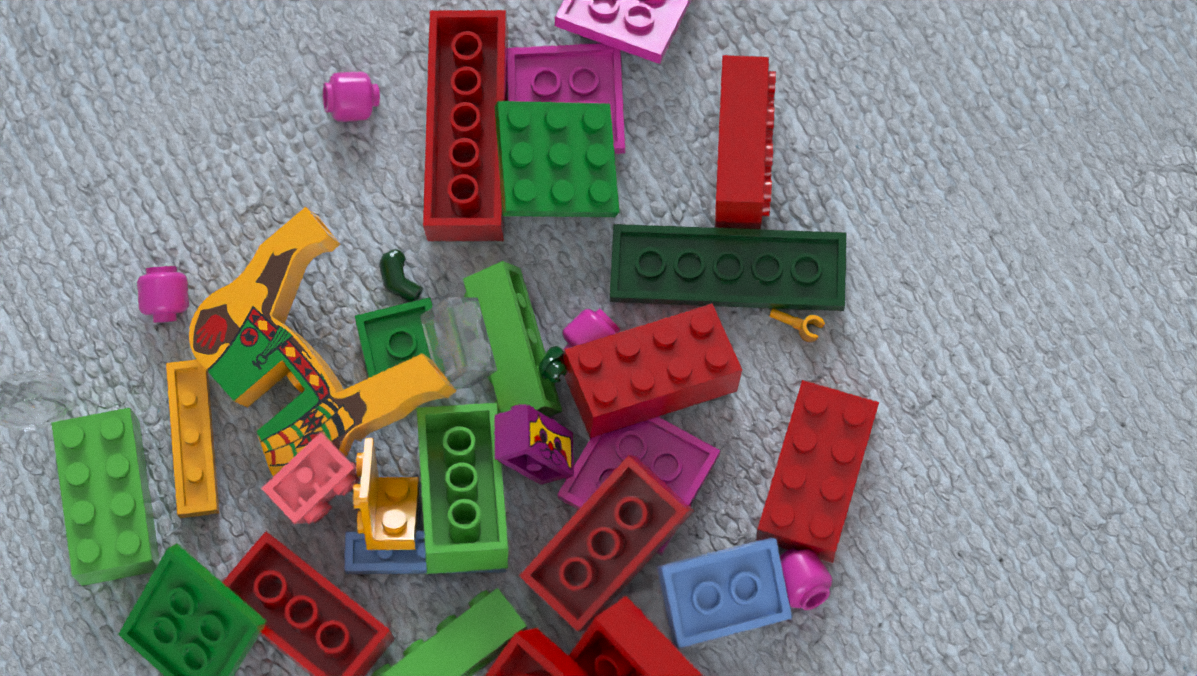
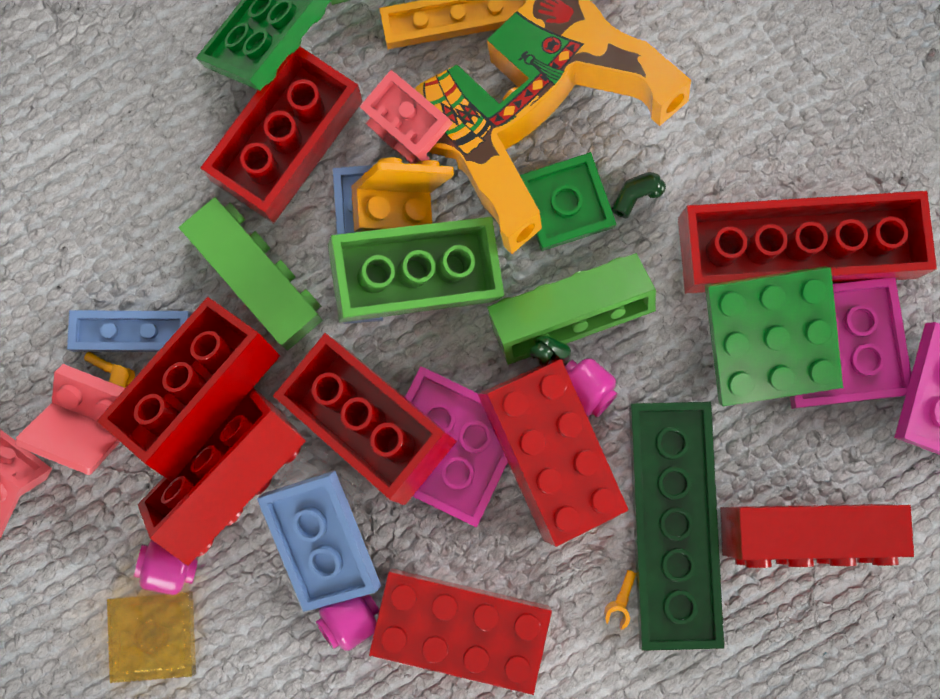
camera: 80 degrees right, 10 degrees up
(350, 96) = (824, 125): dark pink head -> none
(459, 341) = (567, 254): clear brick -> none
(533, 444) = (464, 336): magenta brick -> none

